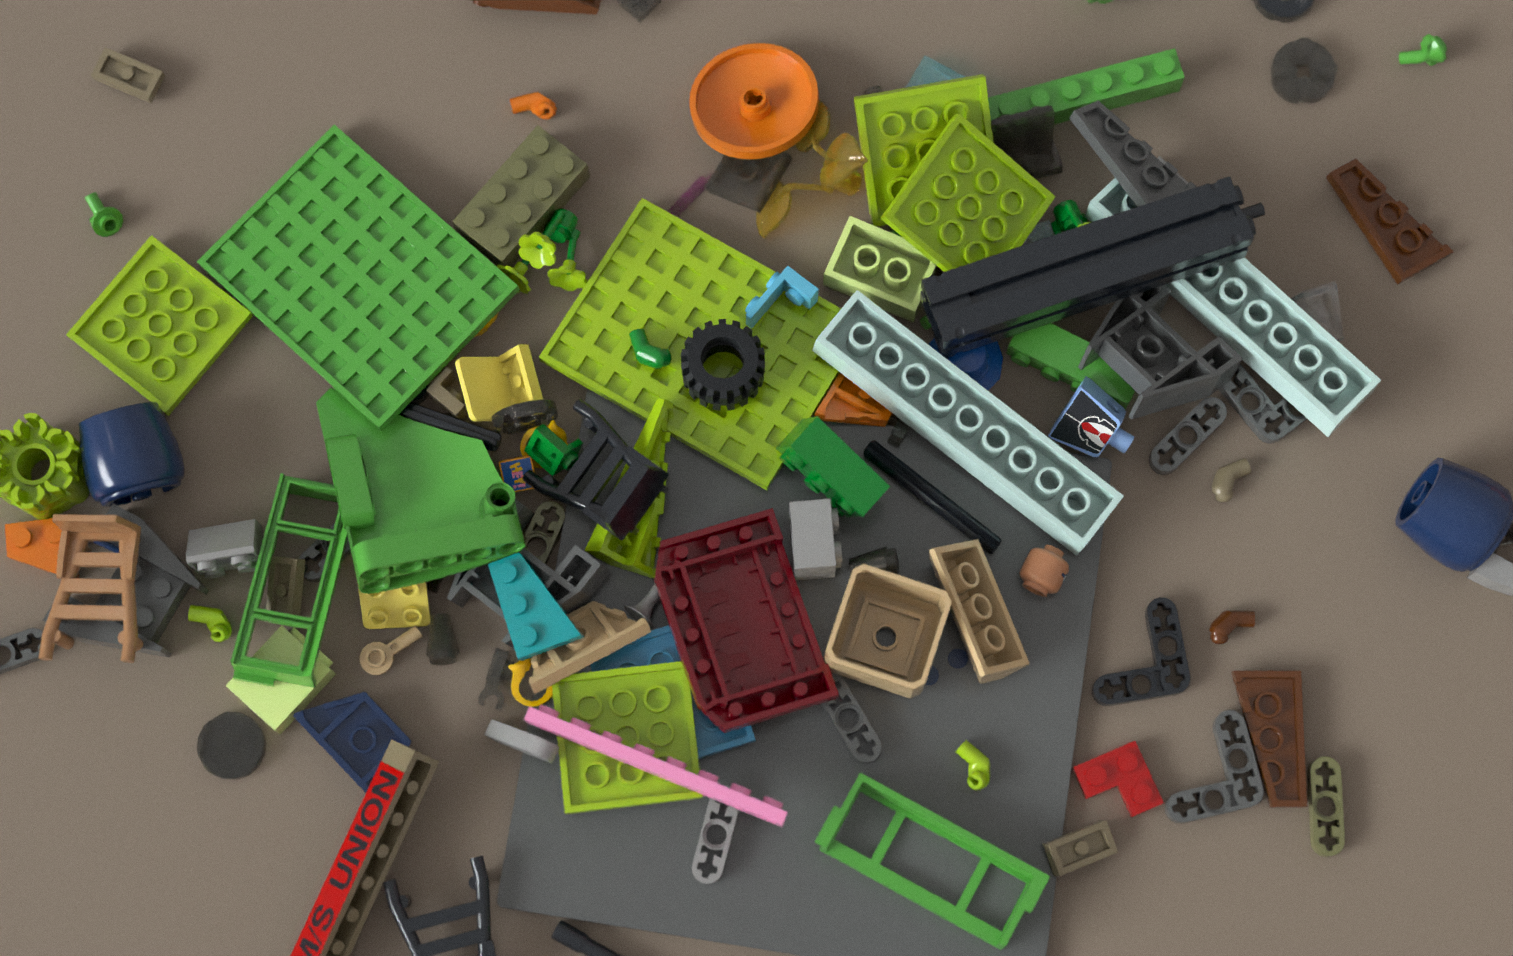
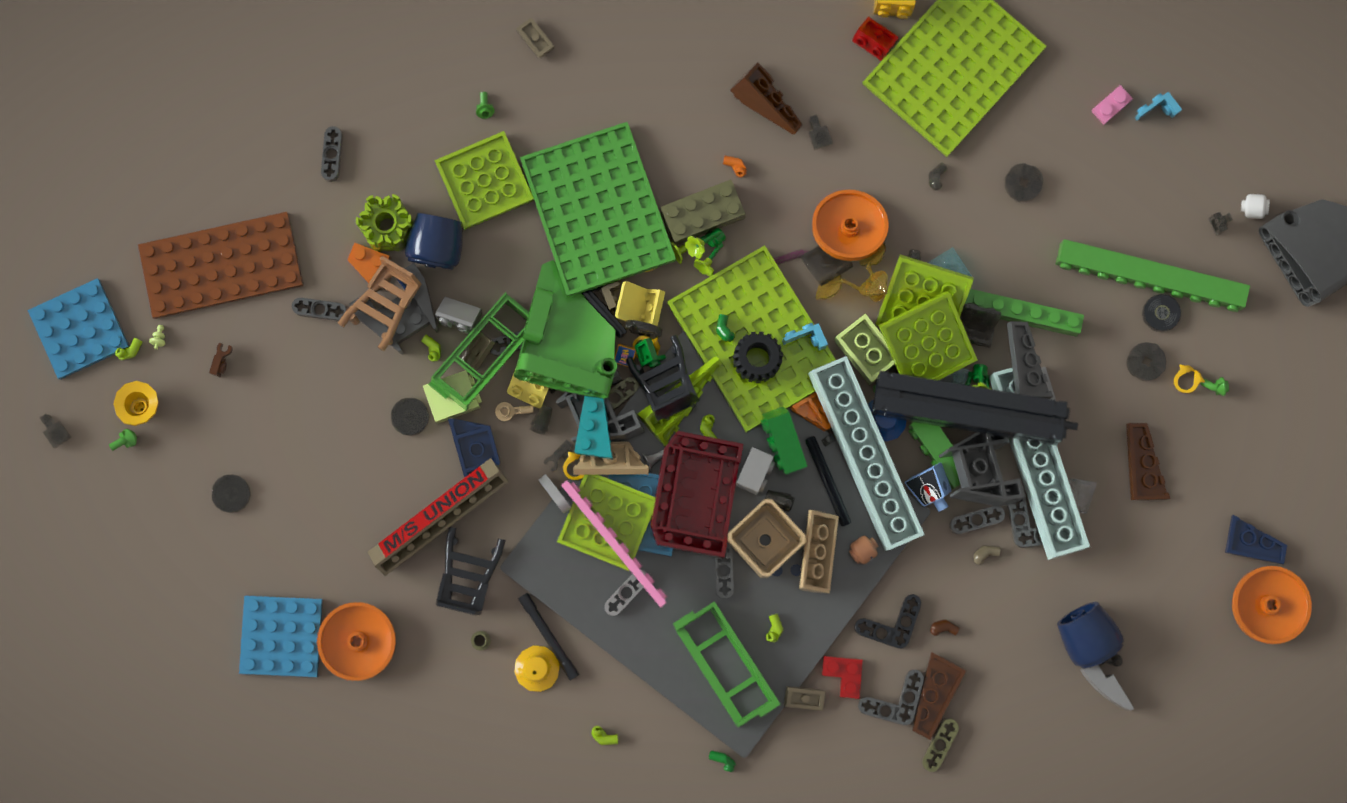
camera: 25 degrees right, 5 degrees up
(701, 511) = (706, 426): none -> lime arm
(1392, 57) = (1186, 369): none -> yellow piece

